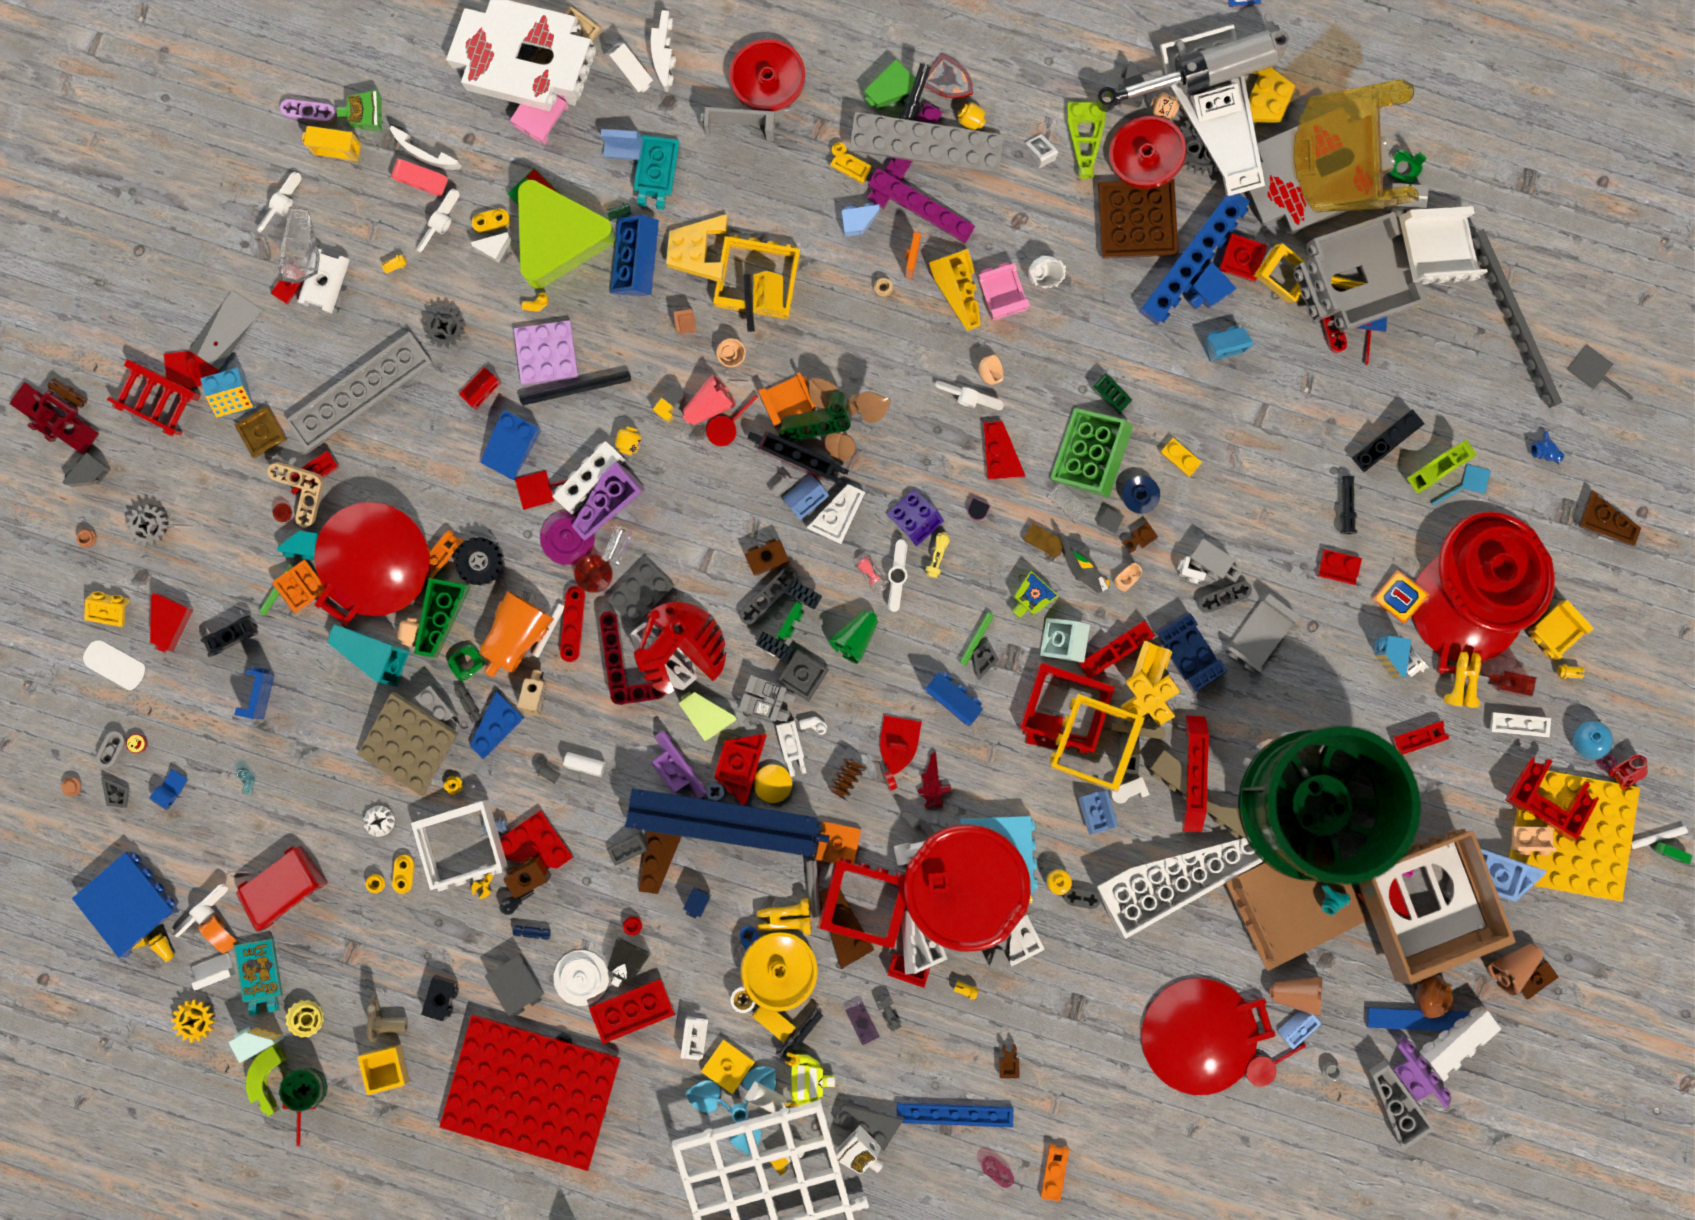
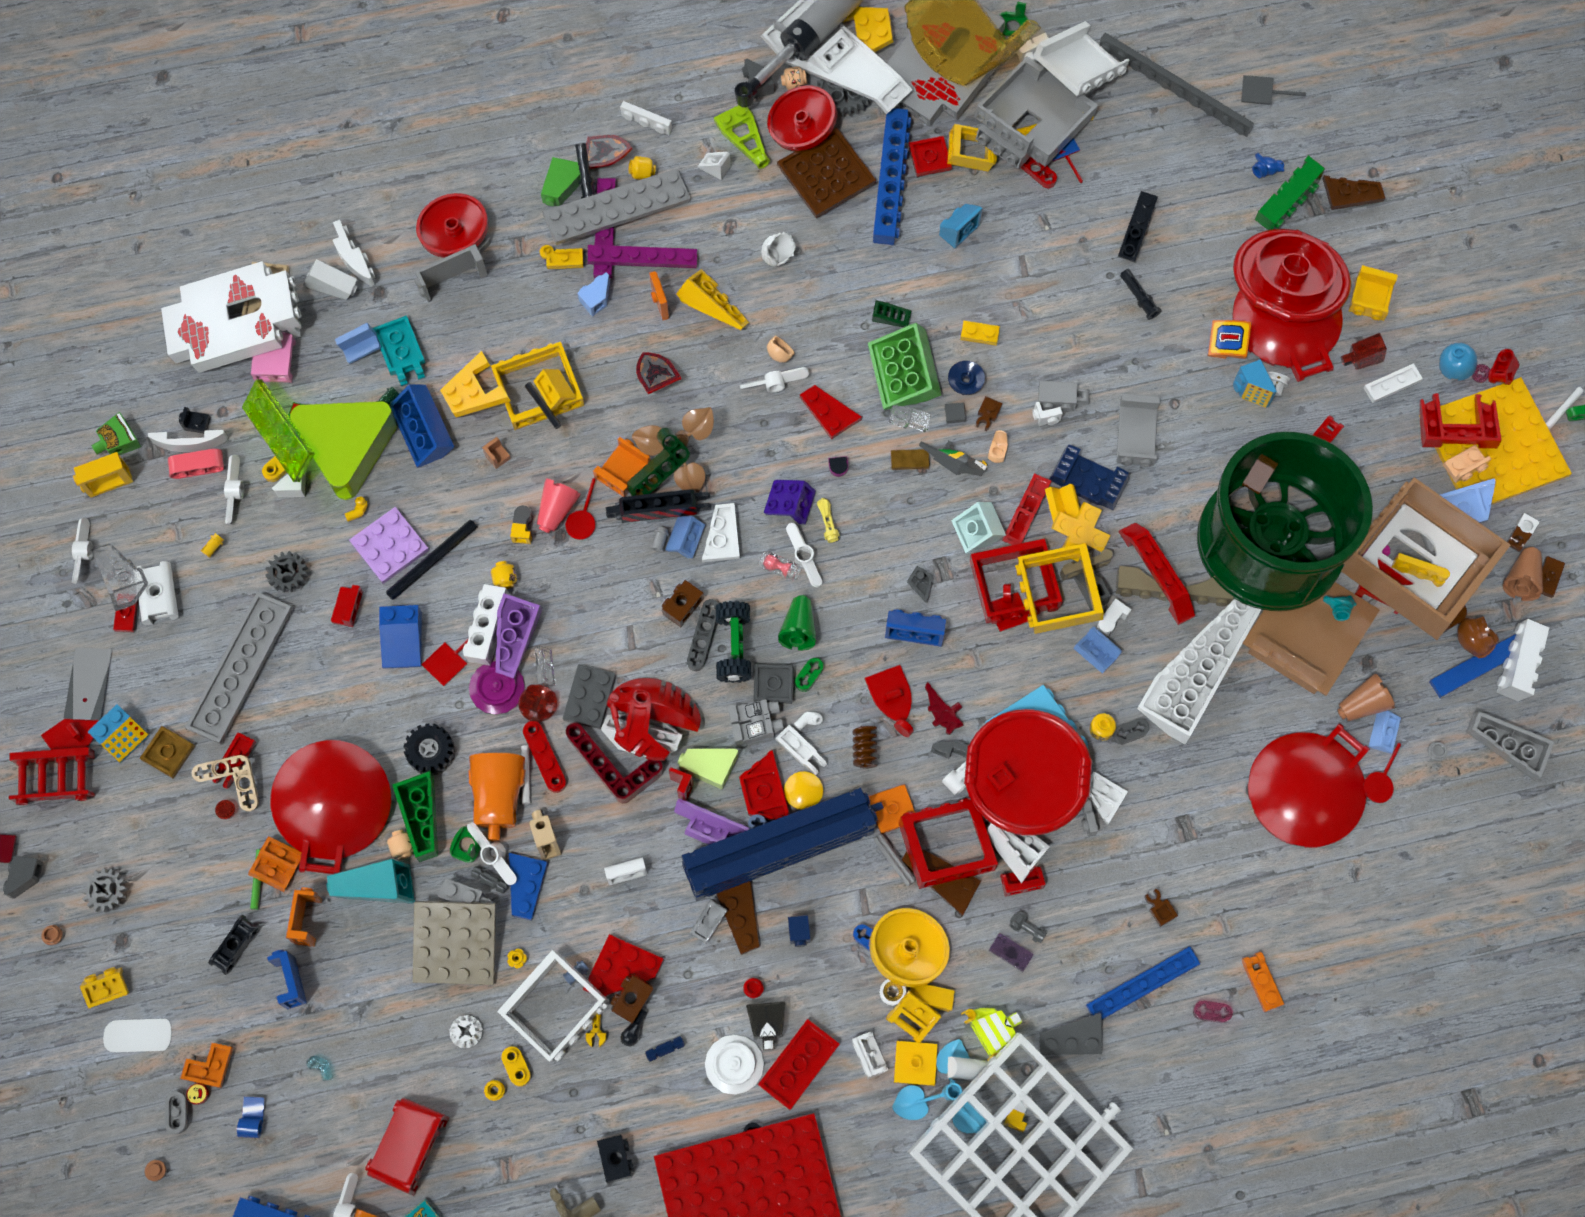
camera: 30 degrees left, 15 degrees down
(115, 793) = (201, 1152): dark grey piece -> none
(156, 732) = (211, 1072): none -> orange plate
(167, 622) = (169, 964): red slope -> none
(281, 658) = (296, 917): none -> orange panel
(299, 544) = (257, 826): teal slope -> none
(303, 104) = (54, 473): lavender beam -> none
(439, 134) = (194, 421): none -> black bracket
(442, 554) = (392, 762): orange plate -> none
(476, 688) = (498, 863): none -> white piece
(503, 191) = (278, 430): none -> clear neon green plate
(514, 986) = (678, 1105): dark grey panel -> none
(547, 772) = (596, 897): dark grey pin -> none
(673, 724) = (685, 781): none -> red panel
(731, 352) = (551, 455): light nougat hair -> none
(752, 1029) = (918, 1012): none -> yellow plate
(776, 923) = (904, 895): yellow piece -> none
(794, 1043) = (961, 1003): black pin -> none
(836, 680) = (806, 672): none -> green beam
(860, 1152) = (1081, 1065): white torso -> none
(867, 327) = (655, 372): none -> shield
(883, 281) = (649, 331): tan plate -> none
(968, 991) = (1083, 868): yellow pin -> none
(976, 639) = (903, 569): bright green bar -> none
(1003, 291) = (751, 285): bright pink panel -> none
(1004, 67) = (646, 118): none -> white plate
(1032, 596) = (928, 507): torso -> none
(1052, 715) = (1007, 597): none -> red tile
(1211, 288) = (919, 191): blue torso -> none
(1213, 607) = (1088, 427): dark grey beam -> none
(1328, 763) = (1260, 474): none -> slope
(1339, 567) = (1165, 345): red plate -> none
(1418, 1076) = (1510, 711): medium lavender bracket -> none
(1423, 913) = (1421, 569): none -> yellow plate
(1441, 466) = (1194, 220): lime arch -> none
(1463, 670) = (1318, 365): yellow piece -> none
(1474, 480) = (1225, 221): dark azure piece -> none
(1539, 928) = (1522, 532): none -> leg
(1548, 492) = (1290, 195): none -> green wedge
(1570, 671) = (1404, 320): yellow pin -> none

